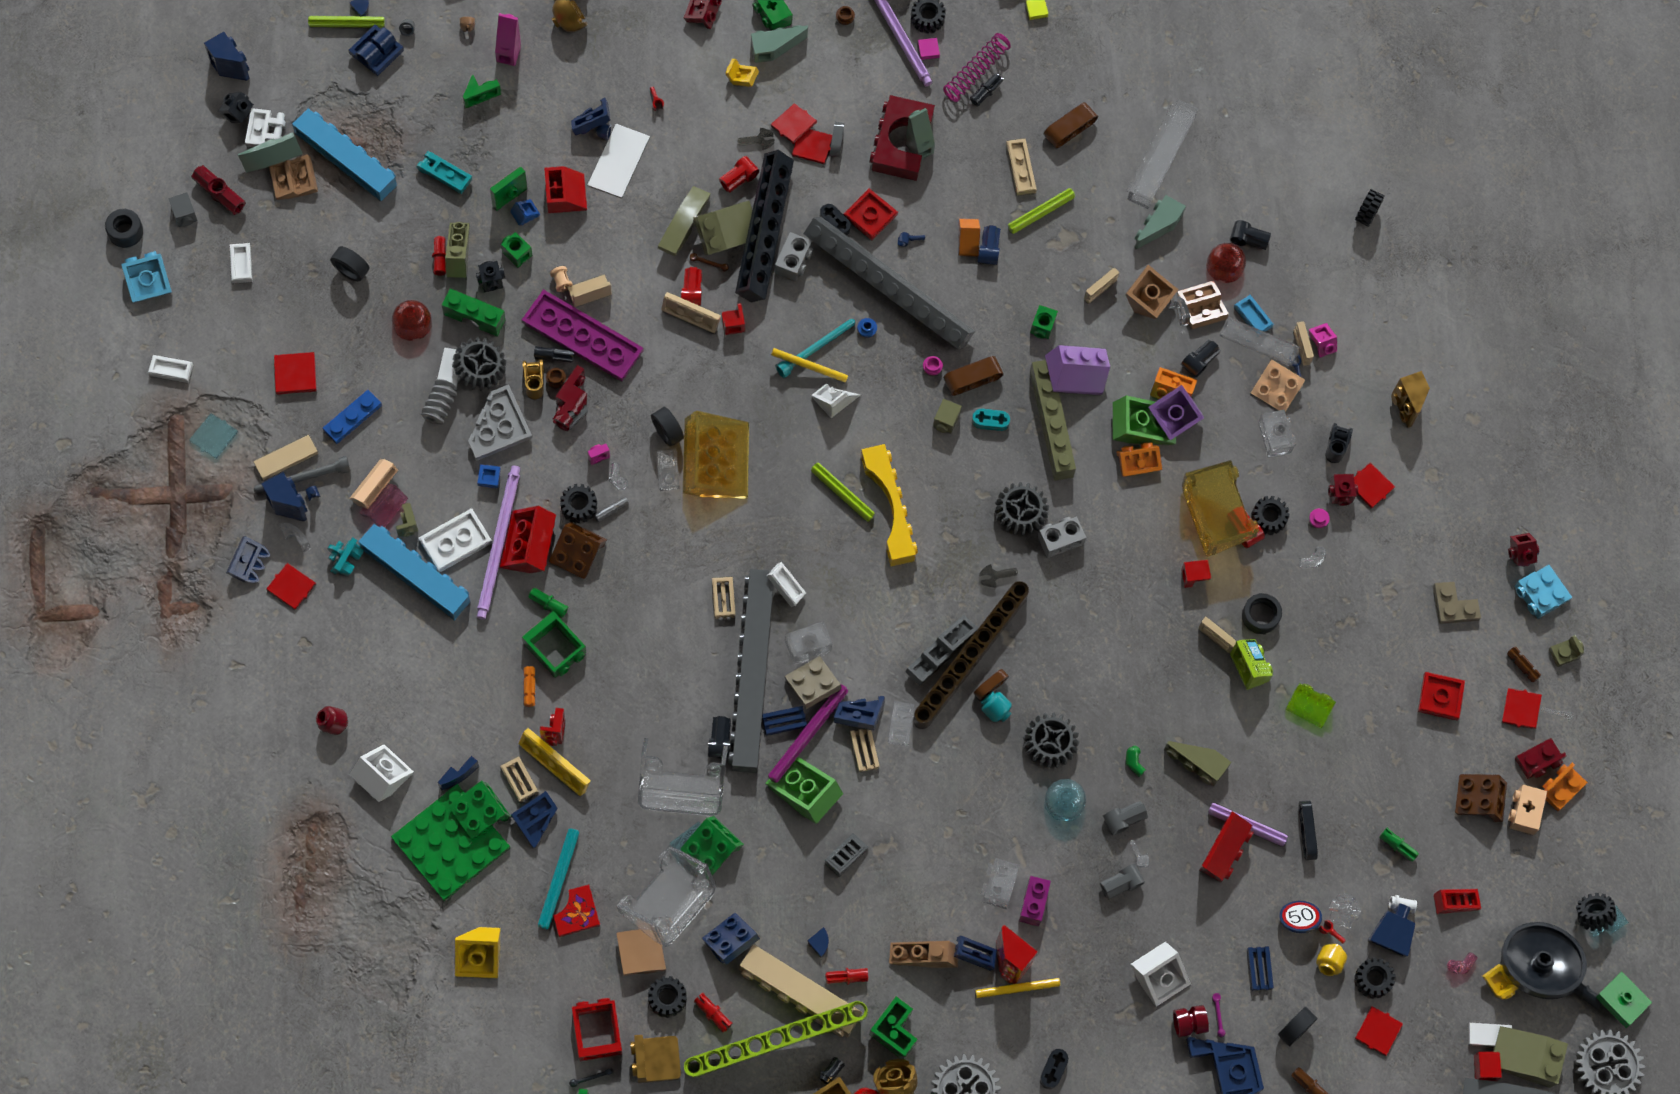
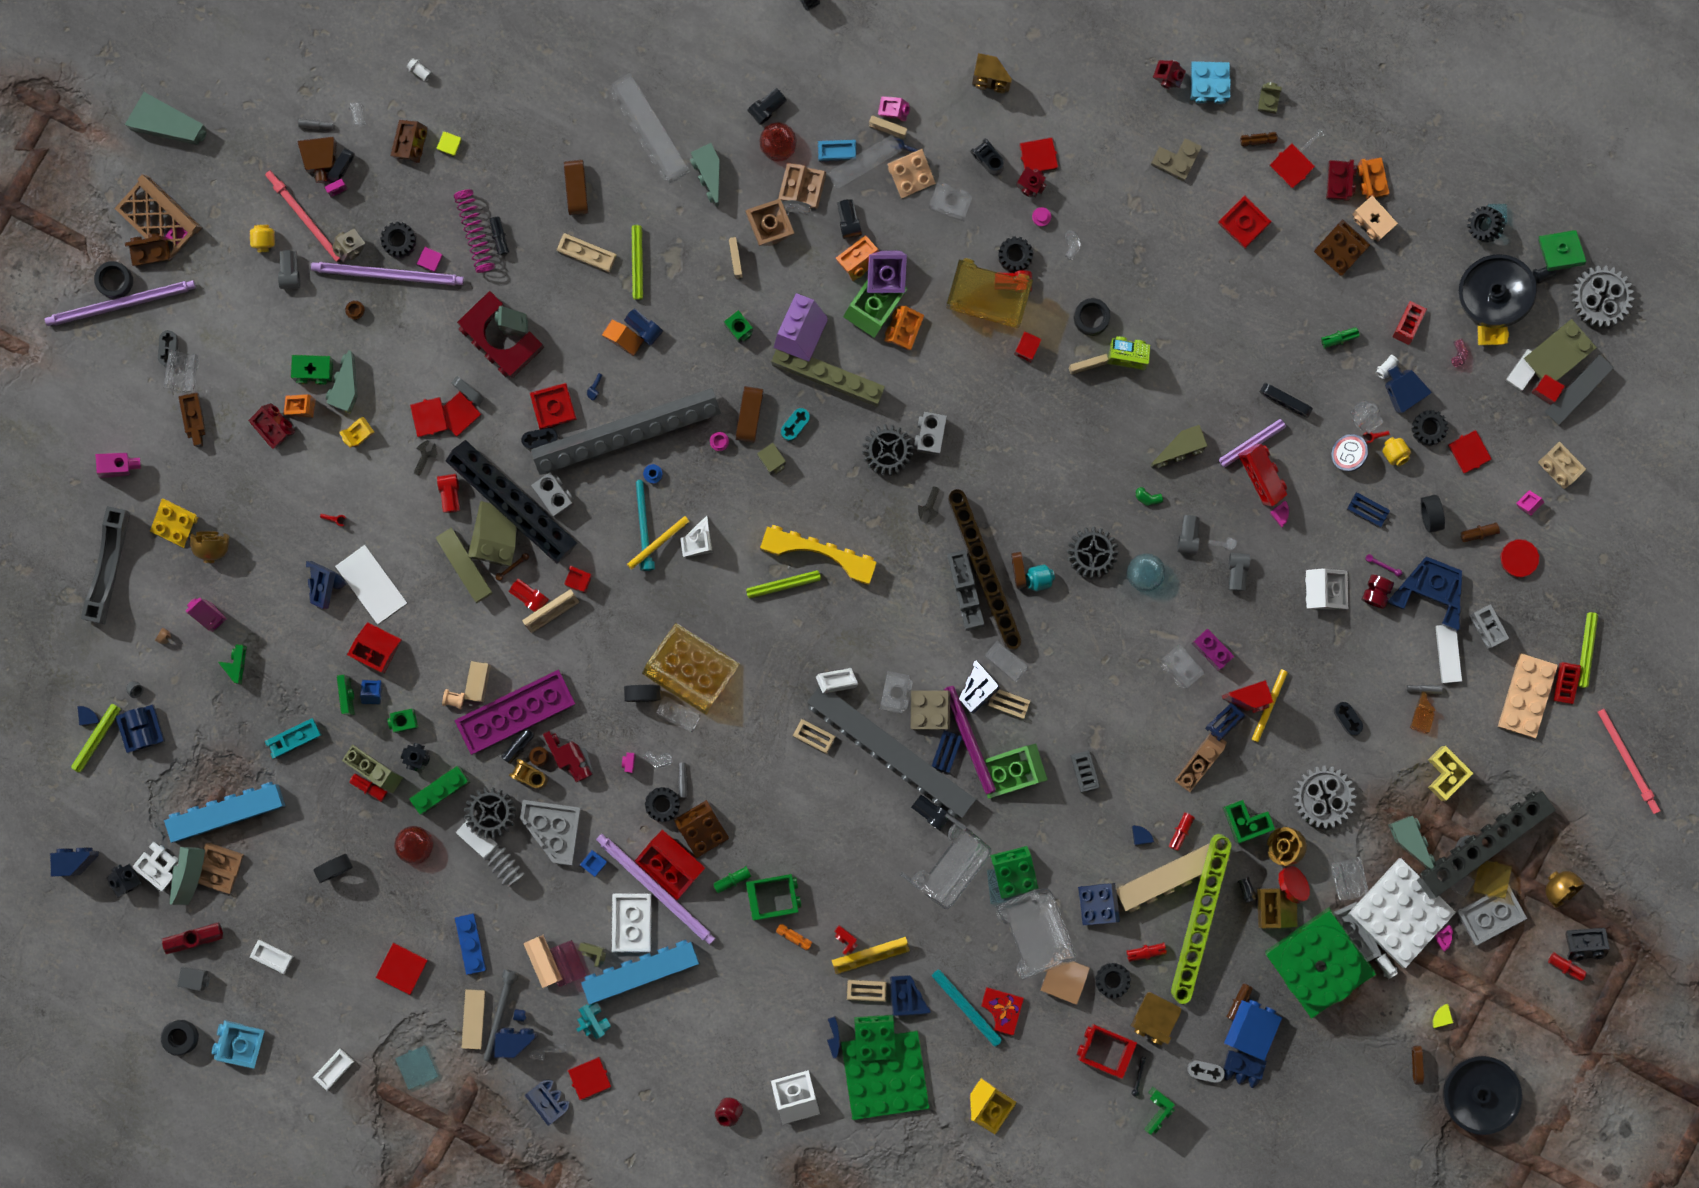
camera: 55 degrees left, 15 degrees up
(735, 19) = (299, 405): none -> orange slope
(1201, 890) = (1281, 514): none -> dark pink tile
(1310, 704) = (1188, 330): clear neon green bracket -> none

